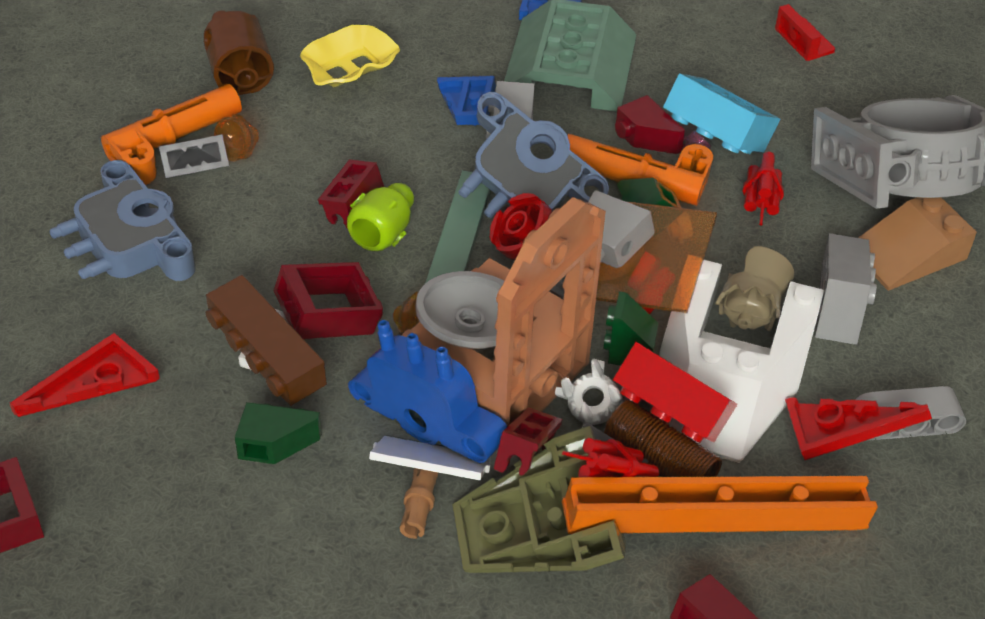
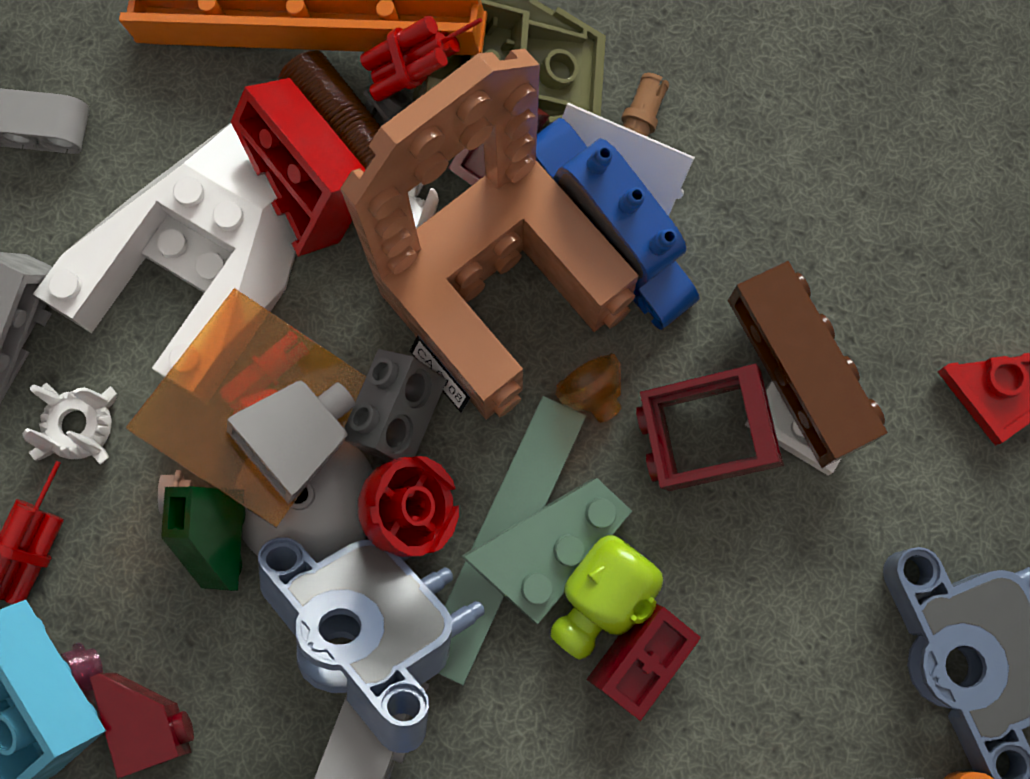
camera: 165 degrees left, 30 degrees up
(275, 432) = (805, 237): dark green slope -> none
(428, 228) = (540, 553): none -> sand green wing
(460, 308) = (531, 247): light grey dish -> none
(629, 325) = (319, 288): dark green slope -> none
(685, 179) = (146, 583): orange piece -> none
(755, 295) = (127, 321): dark tan hat -> none
(774, 242) = (74, 445): none -> white piece
(841, 424) = (117, 109): red wing -> none

